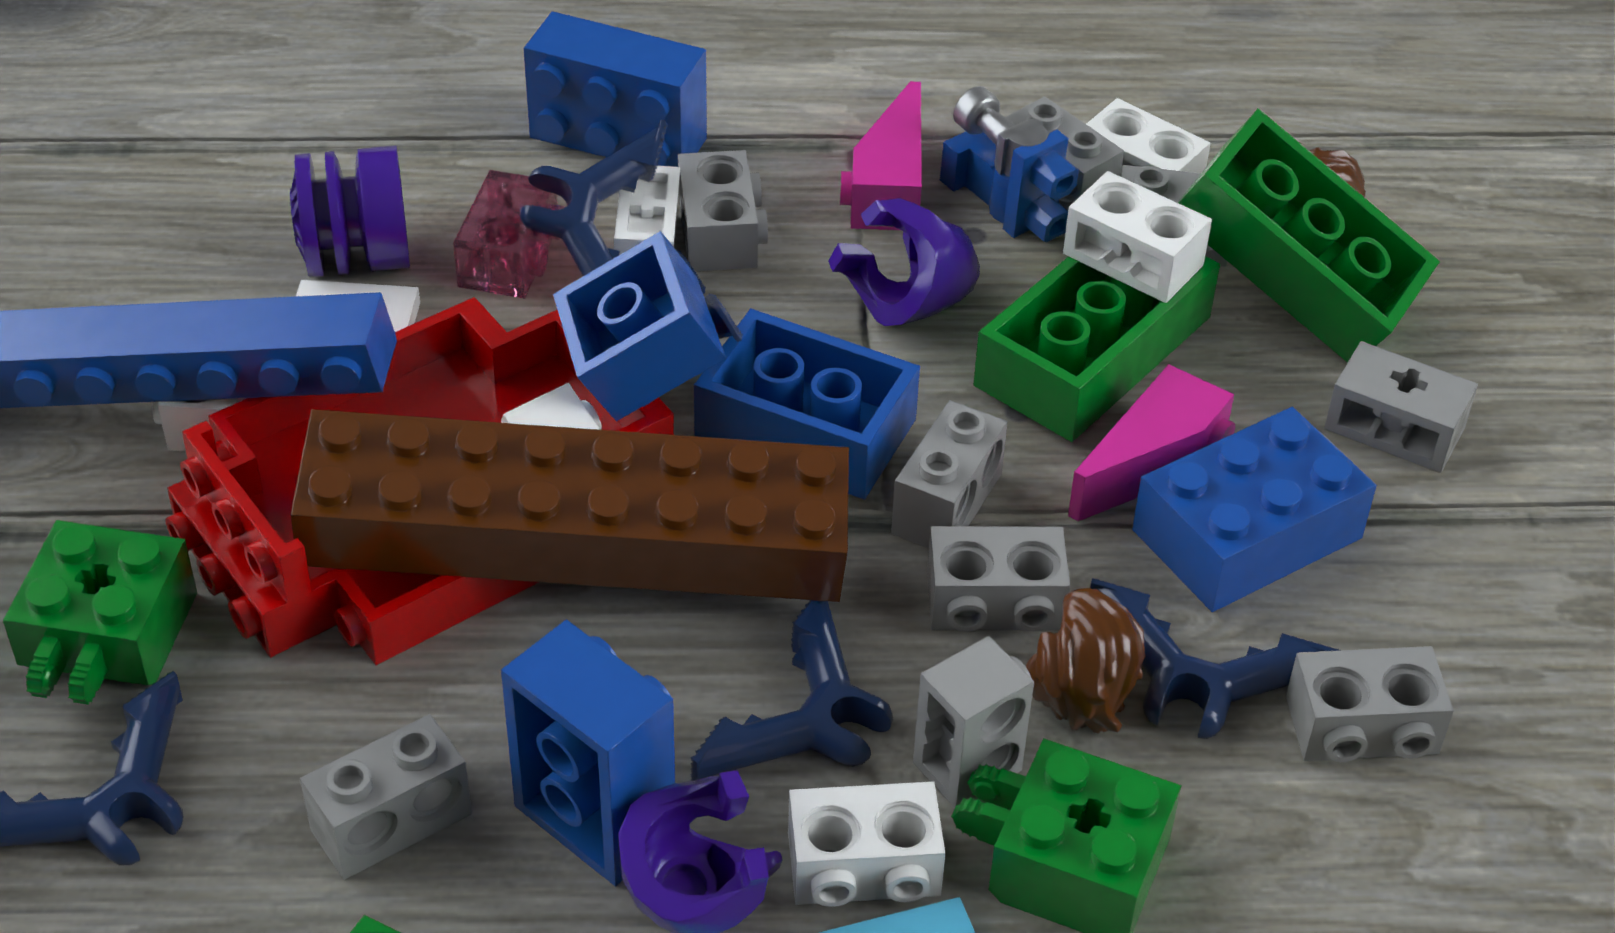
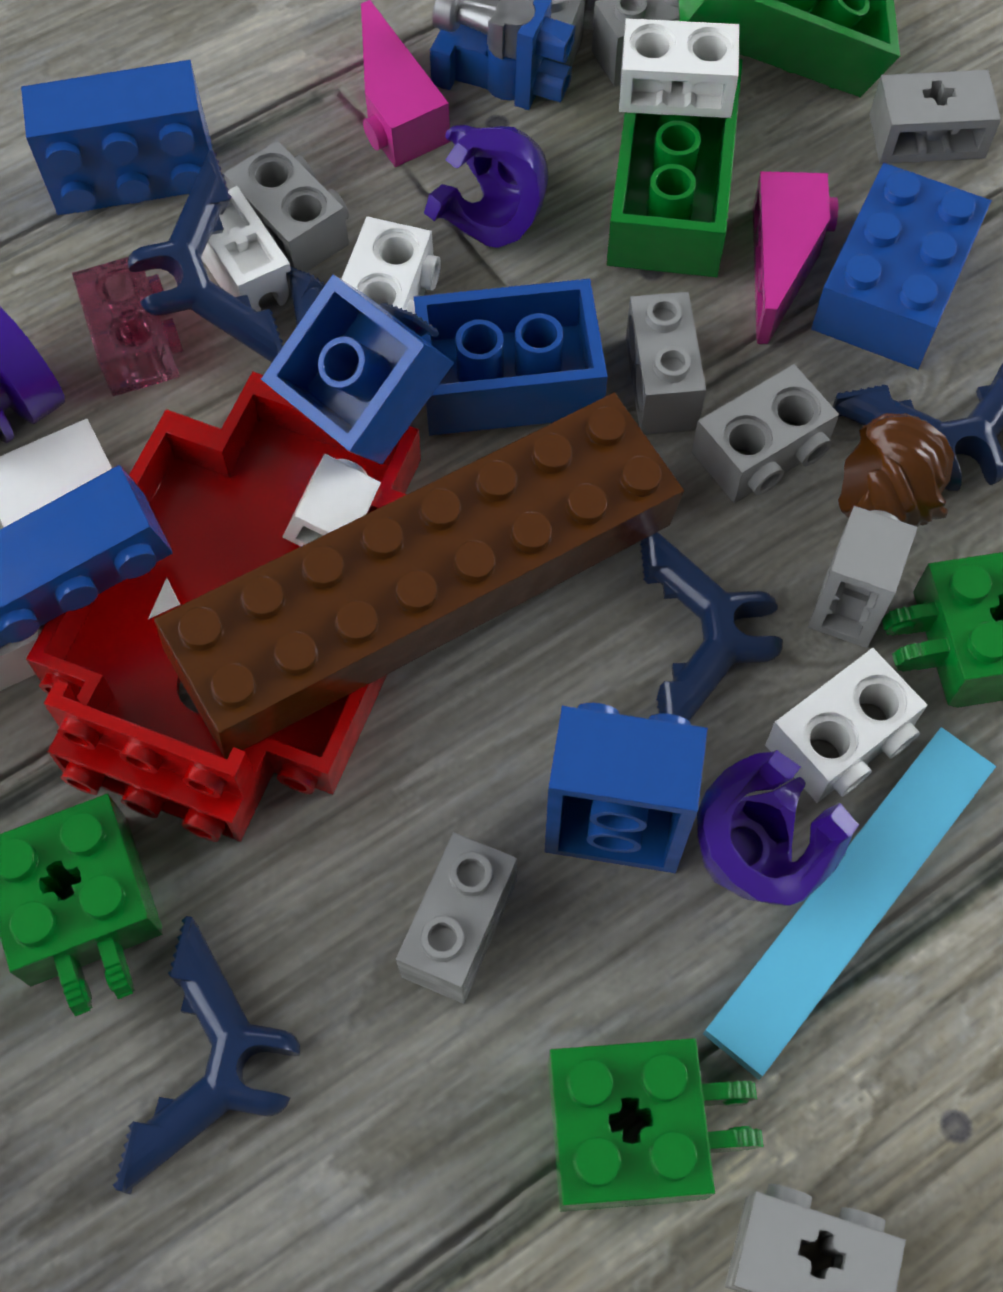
camera: 30 degrees left, 20 degrees up
(768, 282) = (393, 263): none -> white brick

